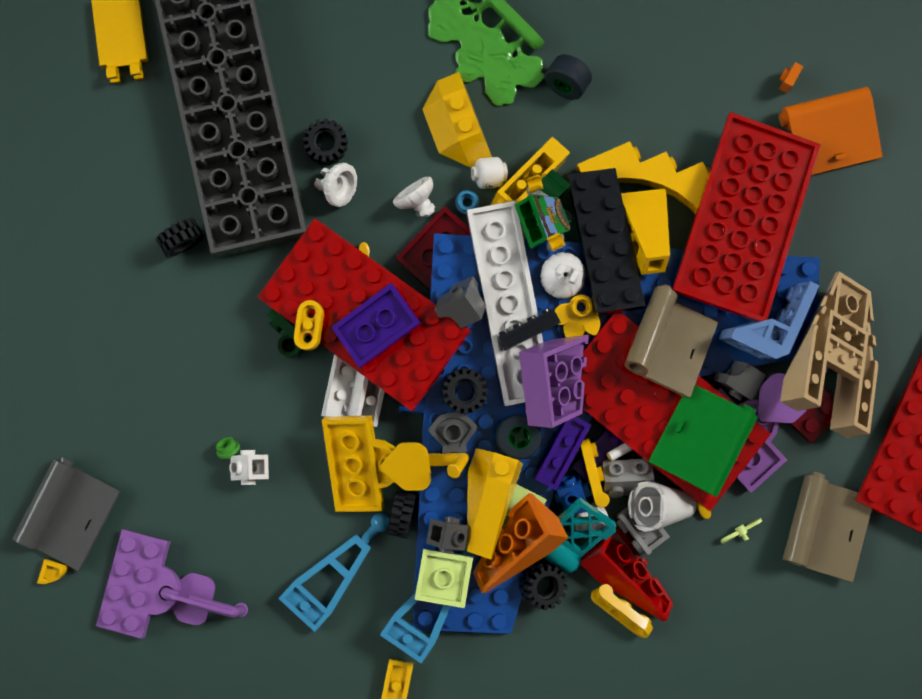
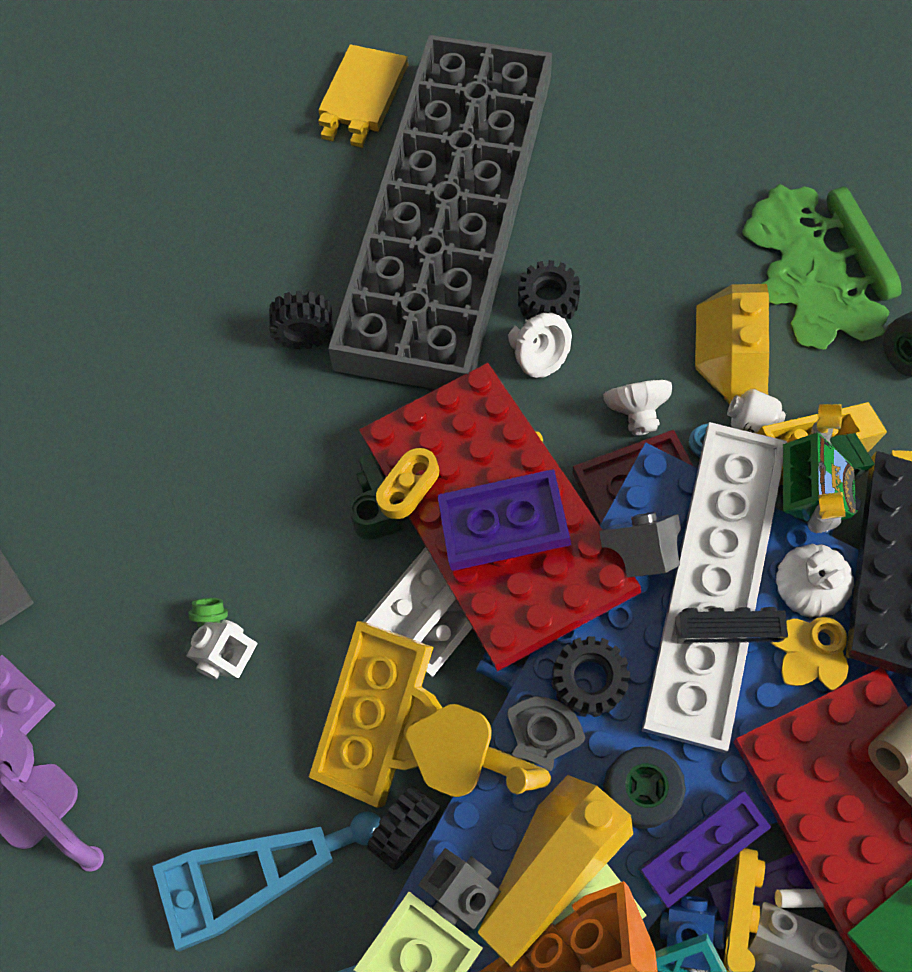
camera: 30 degrees right, 20 degrees down
(553, 380) = (739, 720): medium lavender wedge -> none

